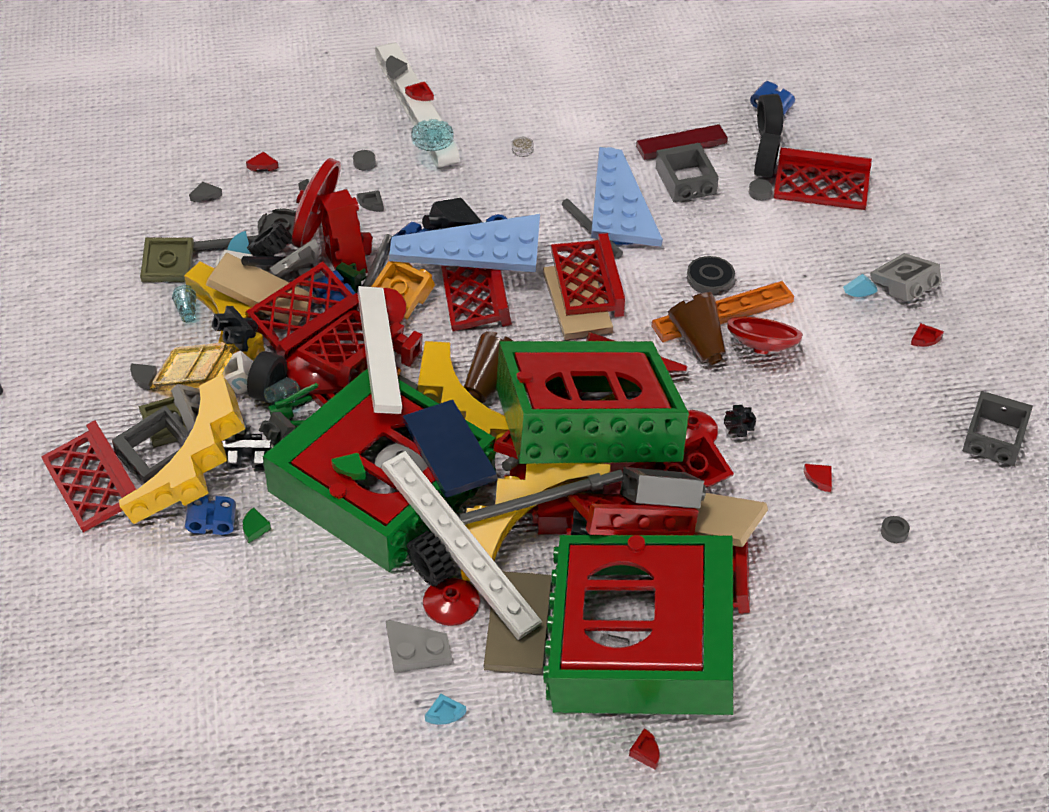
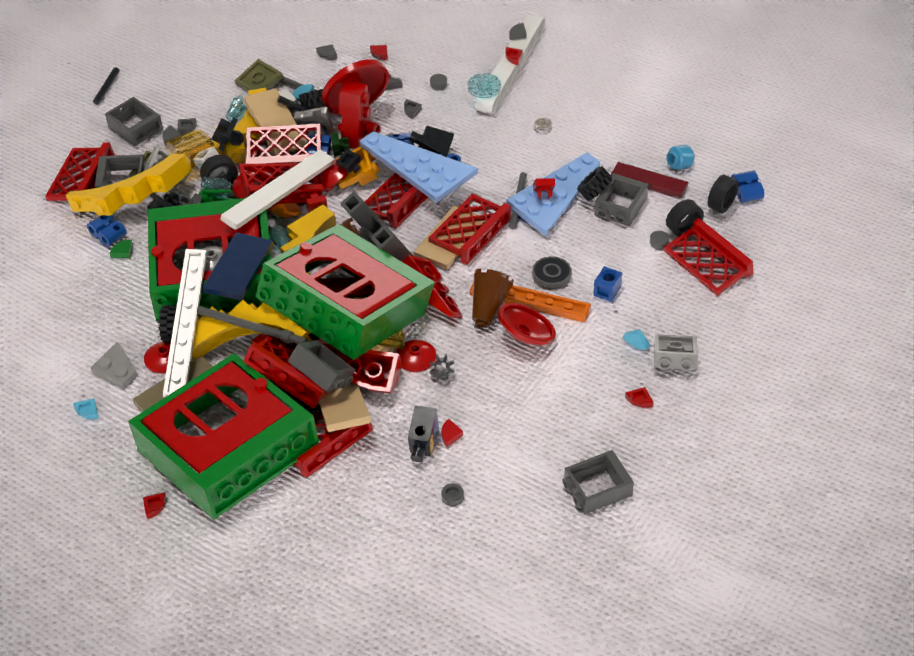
camera: 45 degrees right, 0 degrees up
(87, 368) = (142, 130): none -> dark grey window
(145, 354) = (186, 125): none -> dark grey tile
(350, 466) = (178, 242): green tile -> none
(403, 280) = (349, 161): none -> black tile
(487, 317) = (374, 227): none -> dark grey arch
(619, 197) = (544, 184): none -> red tile
(653, 169) = (594, 183): none -> black tyre
(686, 105) = (680, 157): none -> dark azure head
(775, 253) = (607, 284): none -> blue brick
(810, 490) = (423, 432): none -> torso

